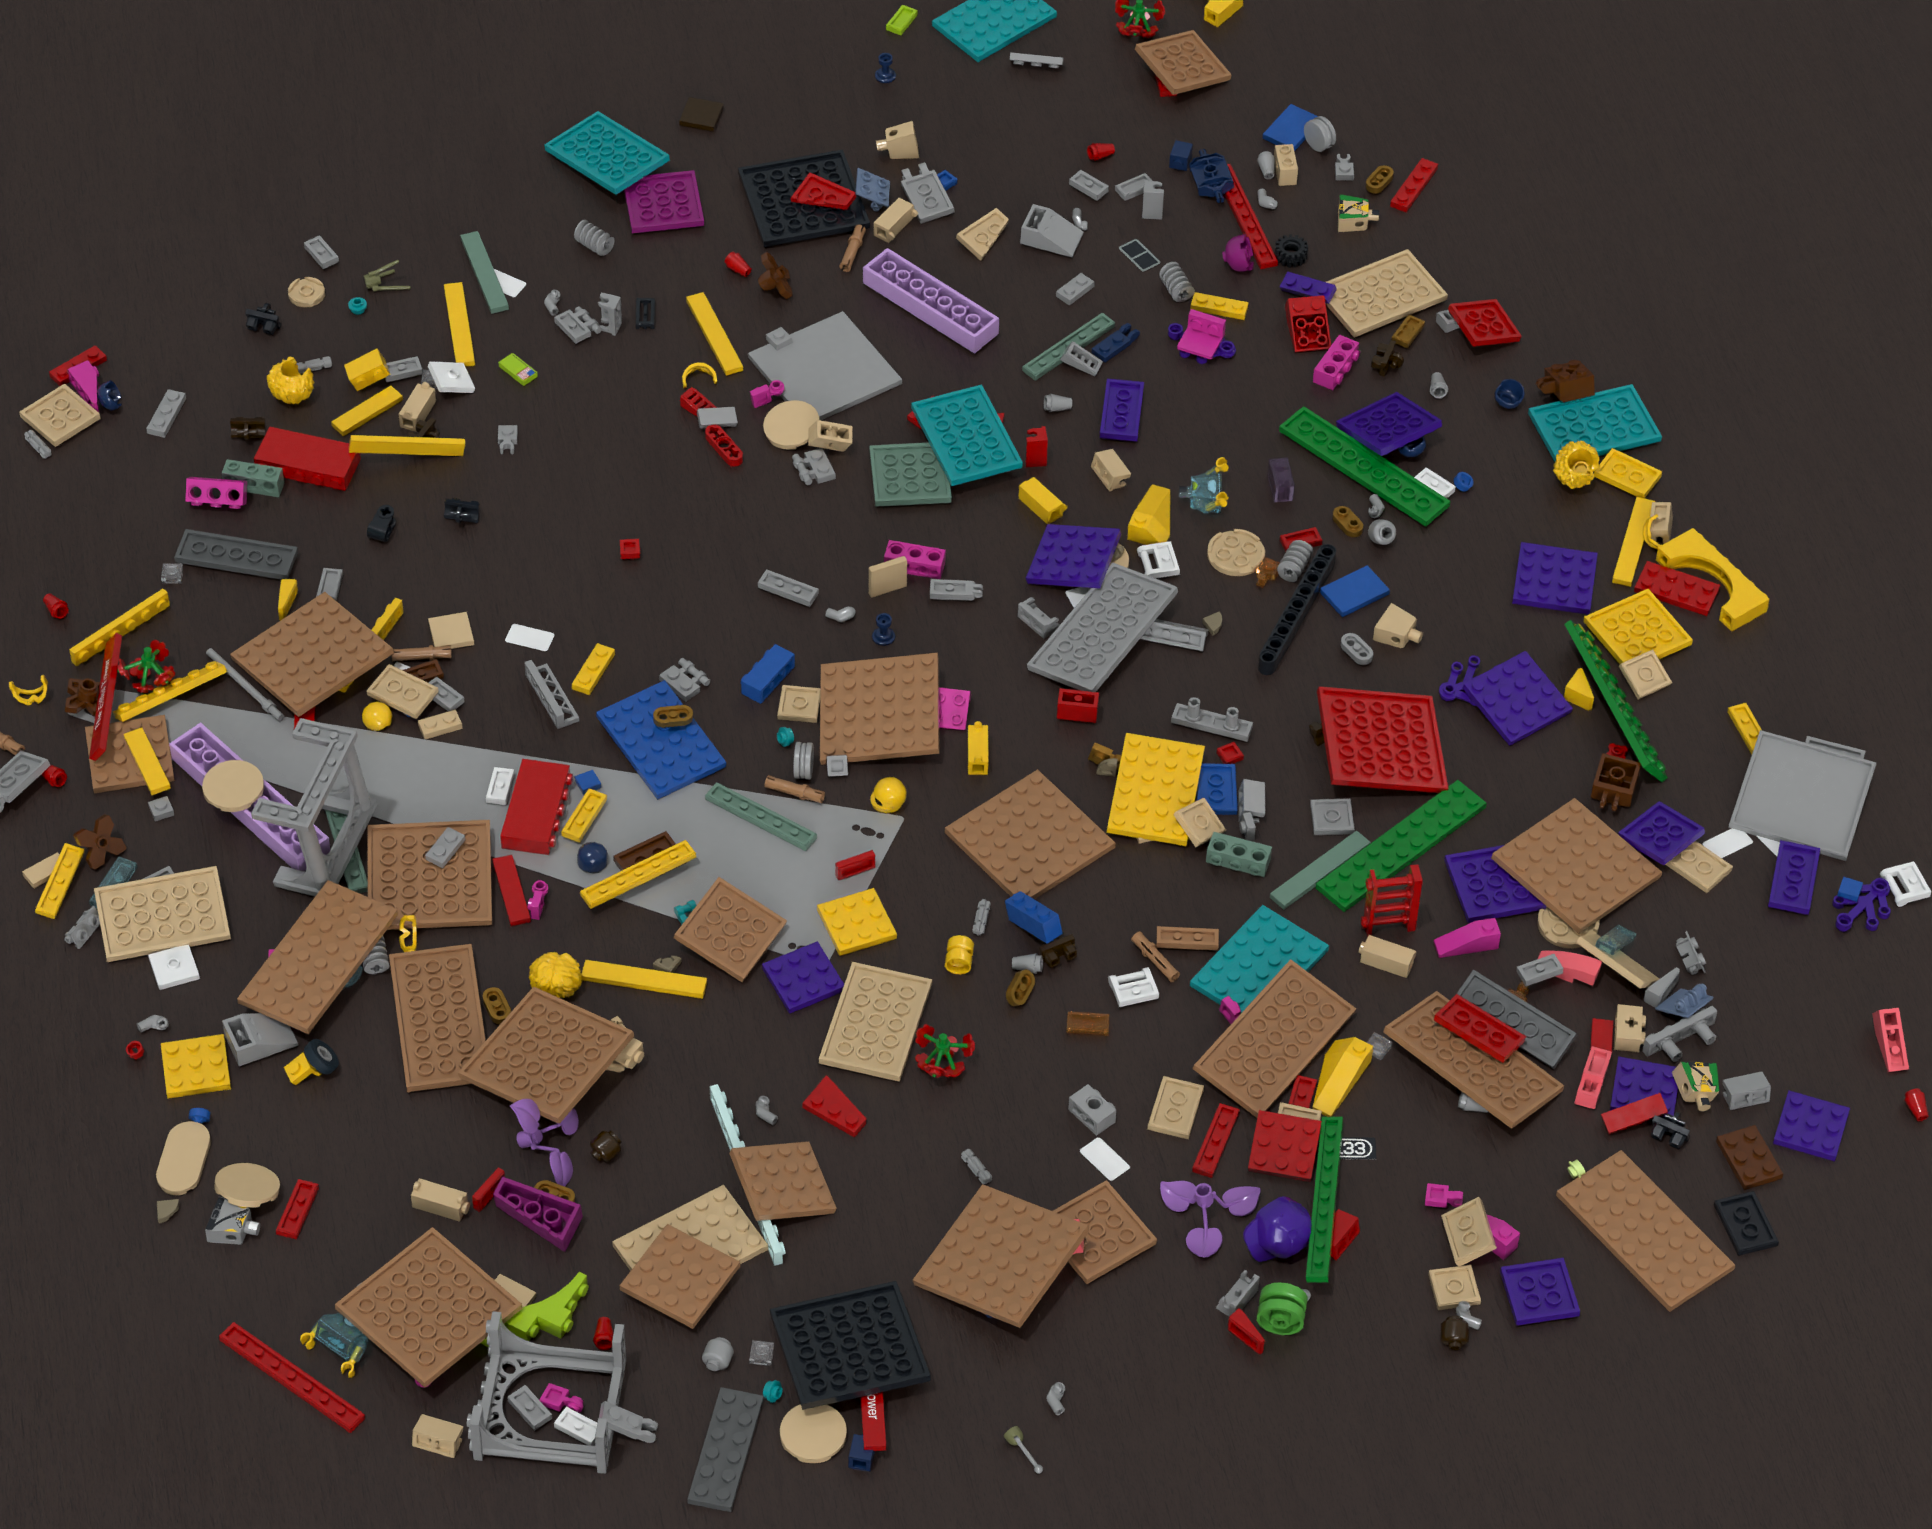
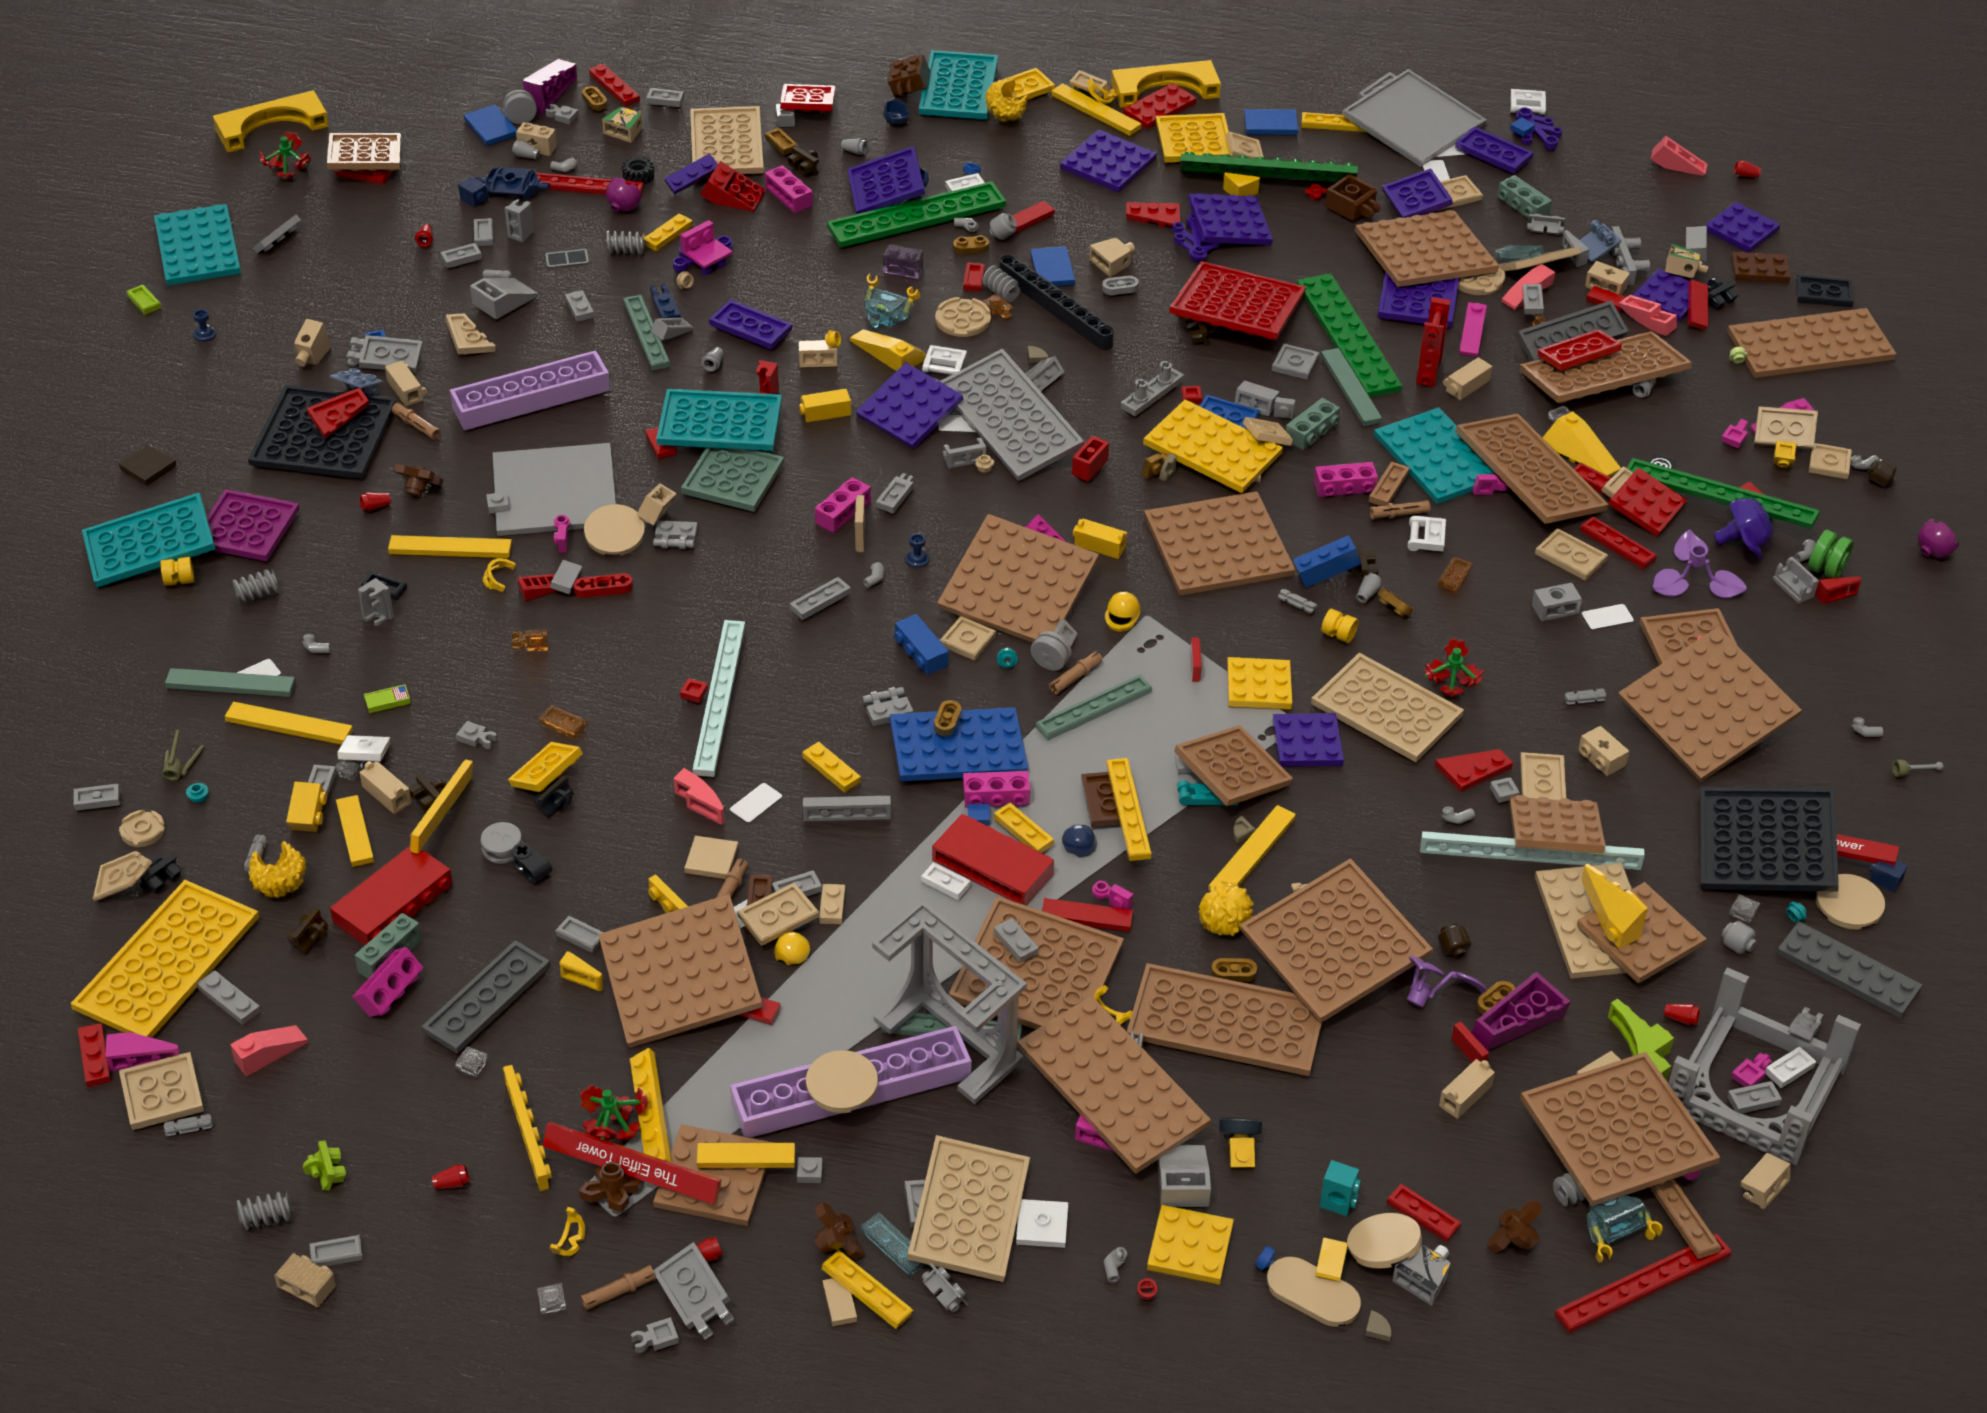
camera: 65 degrees left, 5 degrees down
(31, 528) = (321, 1166): none -> lime hips
(109, 395) = (172, 1034): dark blue hair -> none
(125, 452) = (265, 1047): none -> coral slope
(183, 362) = (165, 960): none -> yellow plate
(215, 1155) = (1331, 1259): none -> yellow slope
(245, 299) = (120, 874): none -> tan tile
(267, 705) = (721, 1033): light grey bar -> none
(282, 1138) = (1340, 1188): none -> teal brick
(297, 1271) = (1517, 1228): none -> reddish brown plant
(366, 1388) = (1686, 1218): none -> medium nougat tile
(399, 496) = (499, 841): none -> light grey head
(488, 491) = (545, 766): none -> yellow plate
(510, 597) = (699, 796): none -> coral slope
(549, 483) = (563, 721): none -> clear orange plate
(573, 326) = (362, 636): light grey plate -> none
(582, 185) = (177, 571): none -> yellow wheel
(618, 781) = (996, 788): none -> dark pink brick
(630, 427) = (533, 639): none -> clear orange plate
(631, 567) = (719, 698): none -> light aqua plate
(674, 1239) = (1618, 911): none -> yellow wedge
(814, 1135) = (1504, 789): none -> light grey plate
(850, 1162) = (1542, 775): none -> tan tile
(905, 1195) = (1603, 750): none -> tan brick
(1035, 637) = (984, 463): none -> tan plate
(1123, 471) = (833, 338): none -> yellow plate
(1154, 347) = (685, 280): none -> tan plate
(1171, 901) = (1345, 479): none -> dark pink brick
(1367, 1397) = (1936, 540): none -> magenta cylinder
(1371, 139) = (550, 83): none -> magenta wedge
(1416, 226) = (665, 97): none -> light grey plate
(1420, 548) = (1033, 215): none -> red tile
(1432, 1243) = (1784, 454): none -> yellow bracket
(1493, 641) = (1160, 213): none -> red wing
(1539, 1291) = (1855, 415): dark purple plate -> none
(1713, 683) = (1270, 122): none -> blue tile
(1721, 923) = (1523, 197): none -> sand green brick

